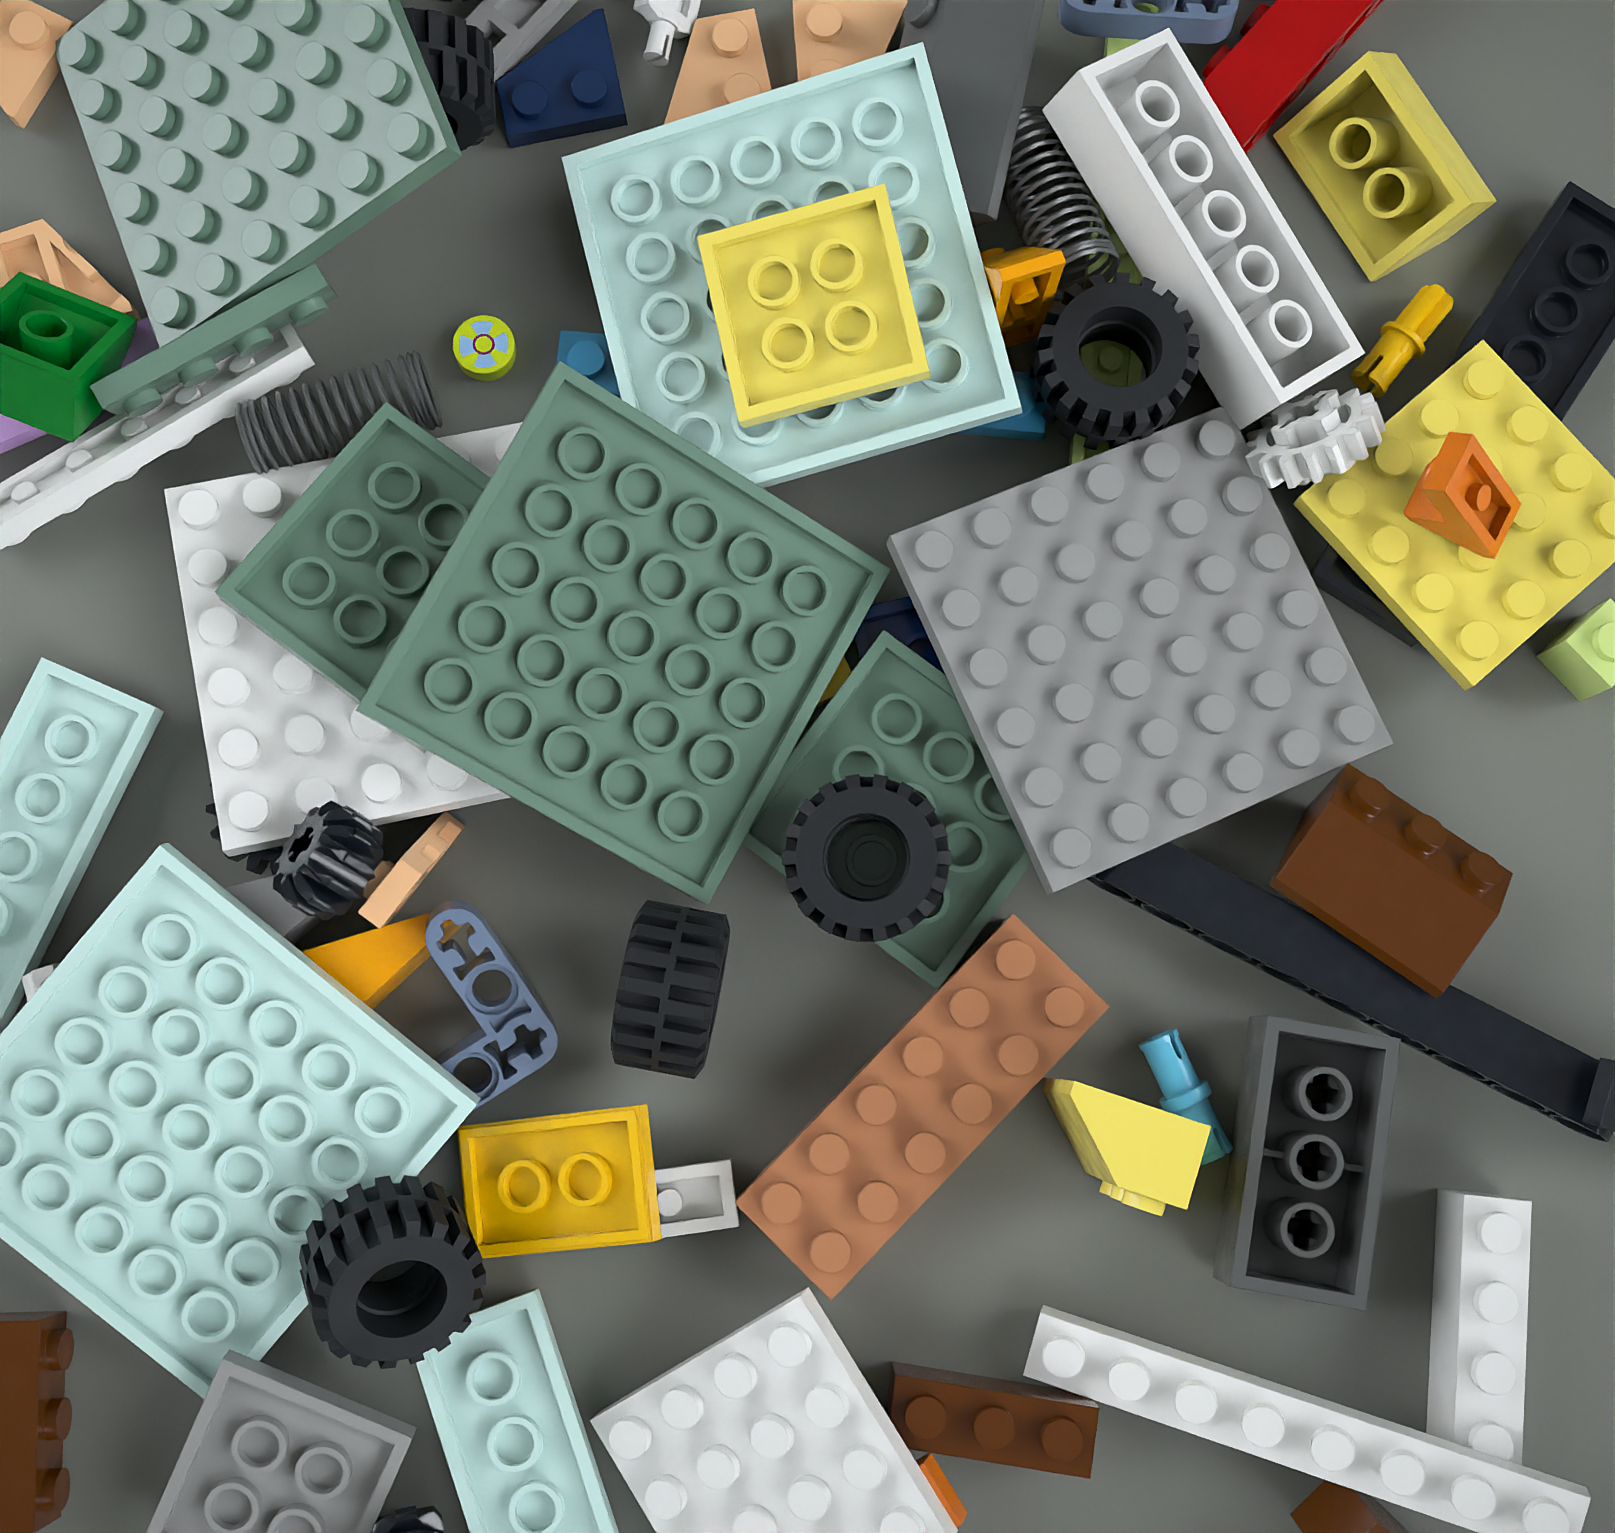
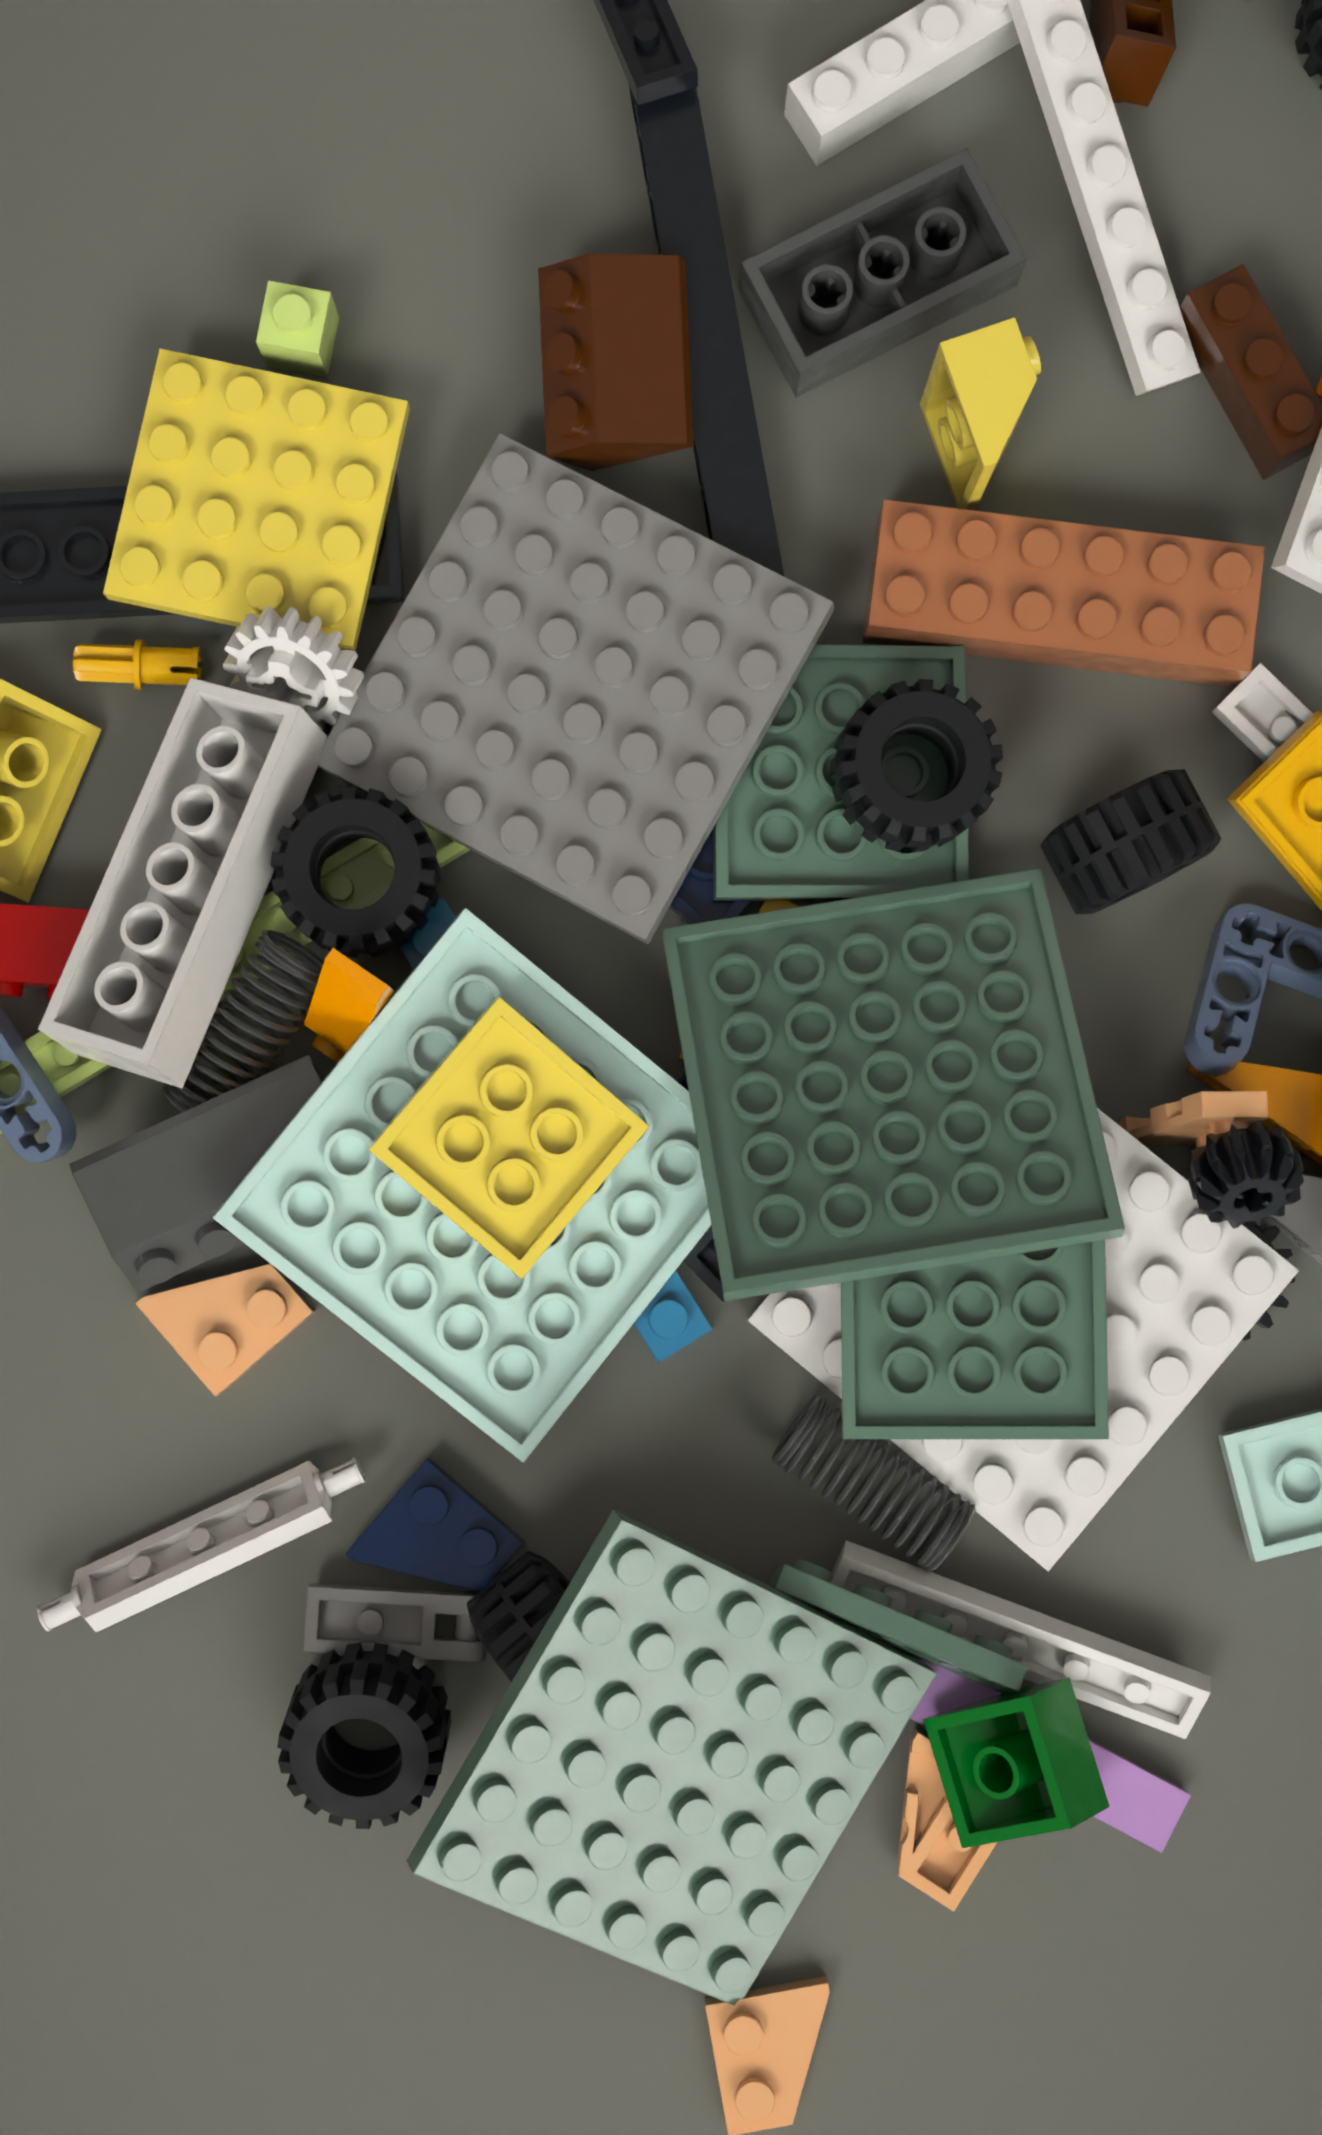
camera: 130 degrees left, 5 degrees up
(484, 348) = (718, 1418): neon yellow tile -> none
(720, 65) = (333, 1402): light nougat wing -> none
(1183, 1090) = (896, 402): medium azure pin -> none
(1464, 497) = (268, 508): orange slope -> none

